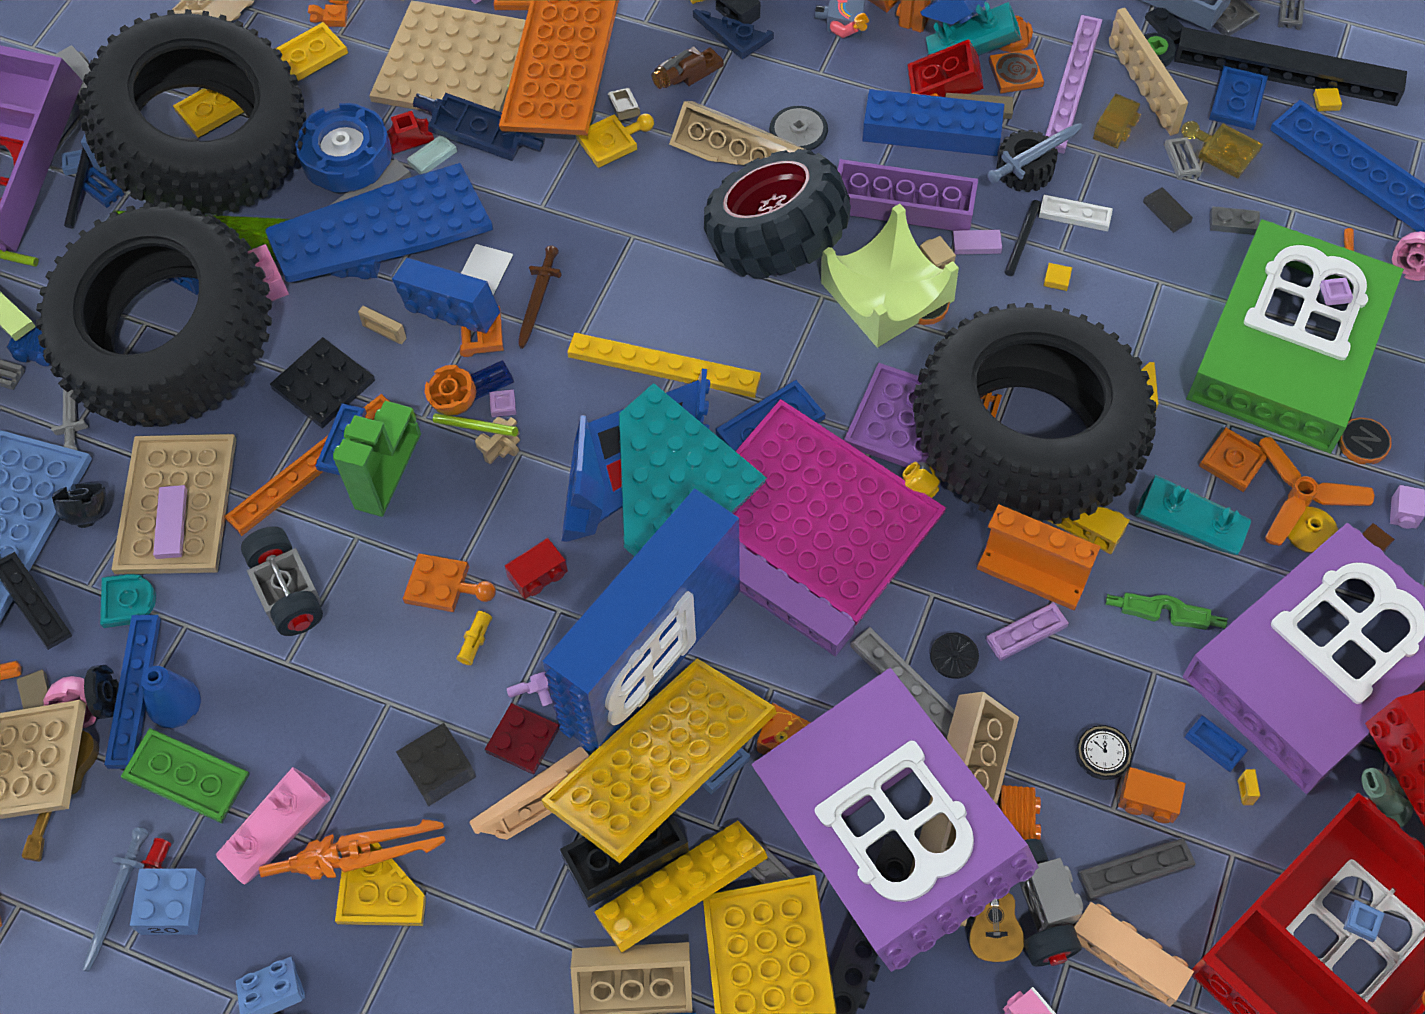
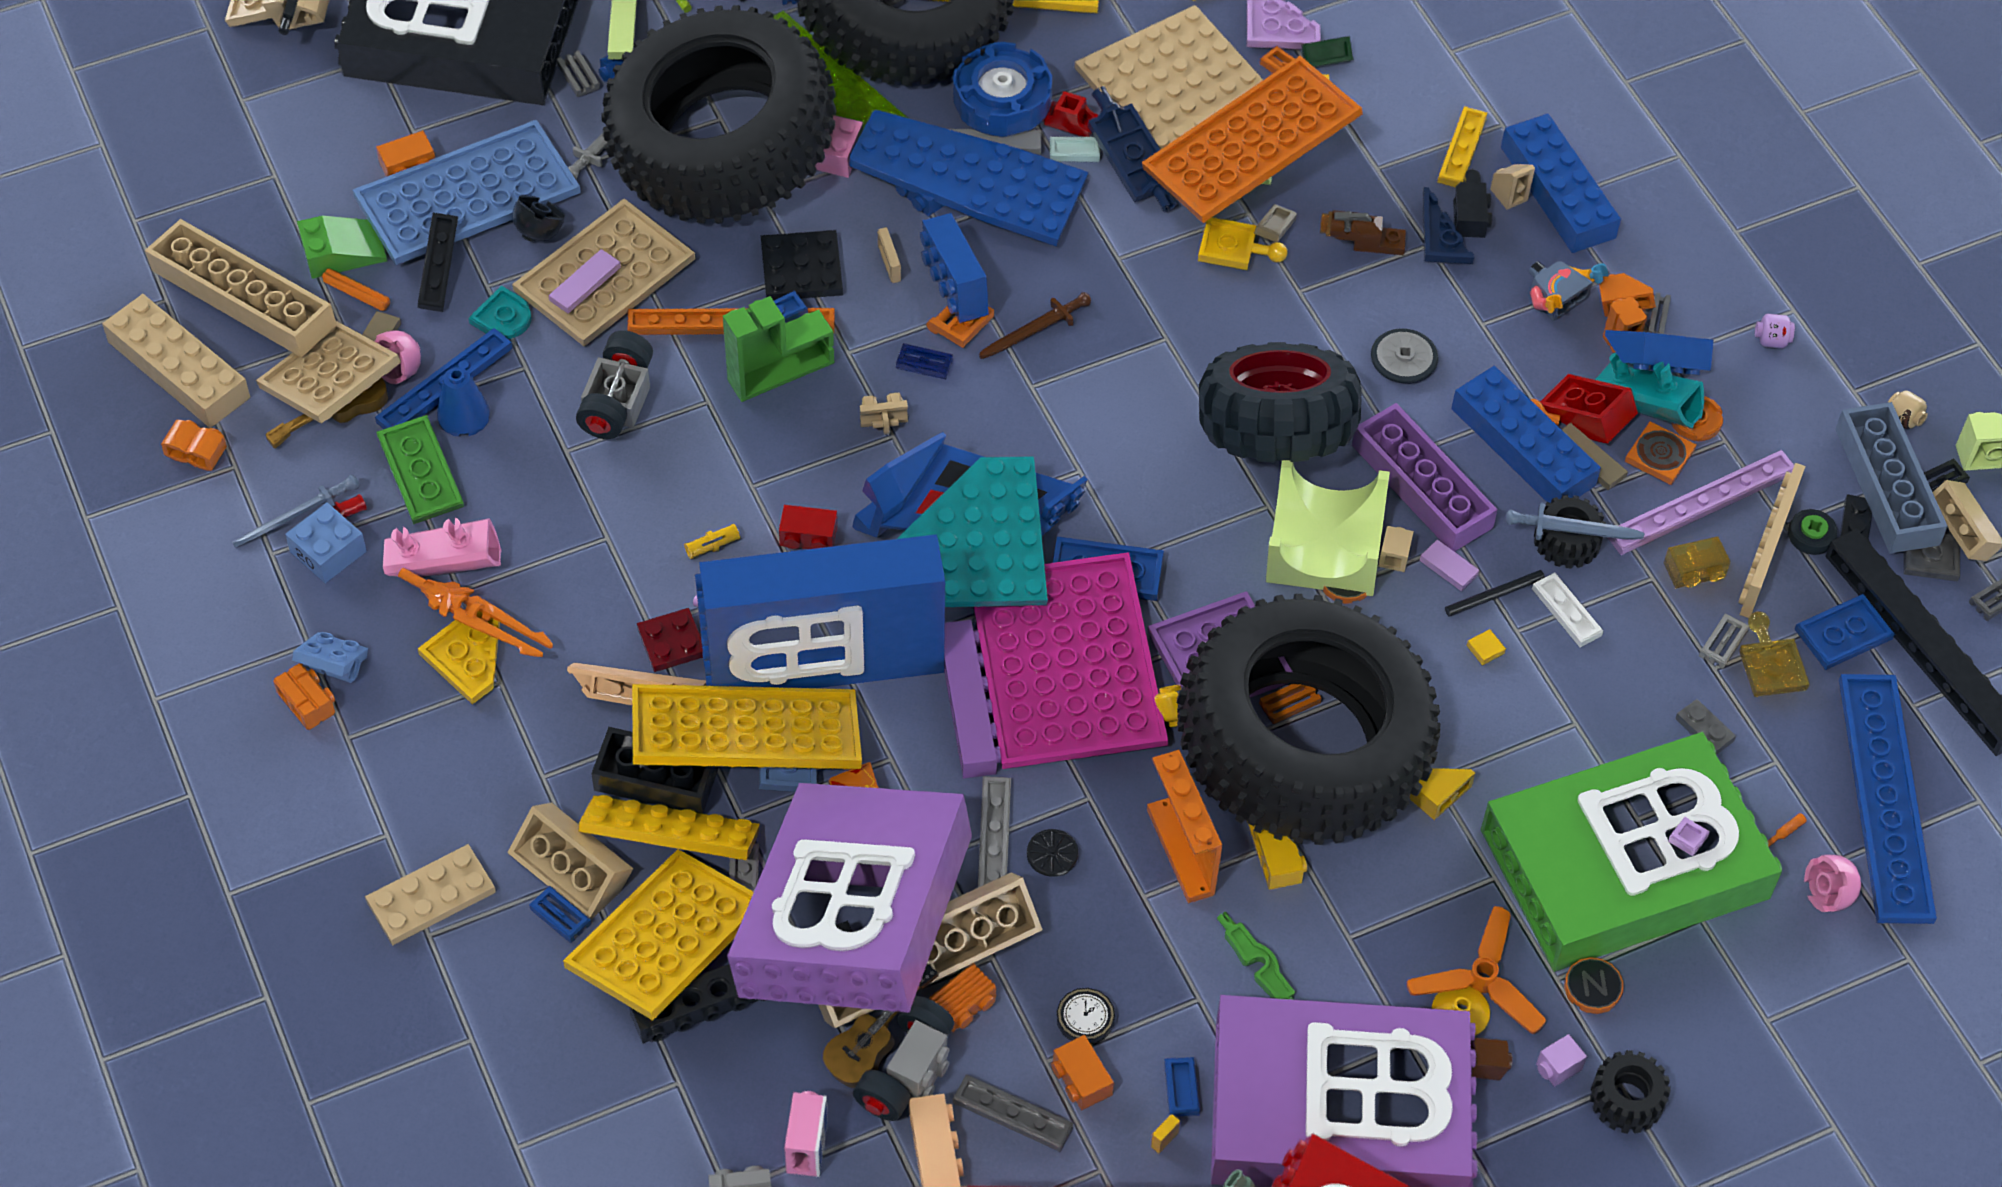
camera: 40 degrees right, 5 degrees down
(100, 691) = (419, 362): black tile -> none
(436, 764) = (591, 603): clear smoke brick -> none
(439, 581) = (731, 481): orange plate -> none
(450, 390) = (882, 344): orange cylinder -> none
(475, 425) = (874, 384): lime bar -> none
(487, 265) = (1015, 275): white sticker -> none
(502, 403) = (918, 388): lavender tile -> none
(663, 364) = (1076, 458): yellow plate -> none
(723, 137) = (1329, 315): tan wedge -> none
(1027, 631) = (1130, 884): lavender tile -> none
(1167, 209) = (1654, 671): clear smoke tile -> none
(1192, 516) = (1360, 909): teal piece -> none
(1234, 459) = (1459, 905): orange tile -> none
(1327, 99) = (1929, 697): yellow tile -> none

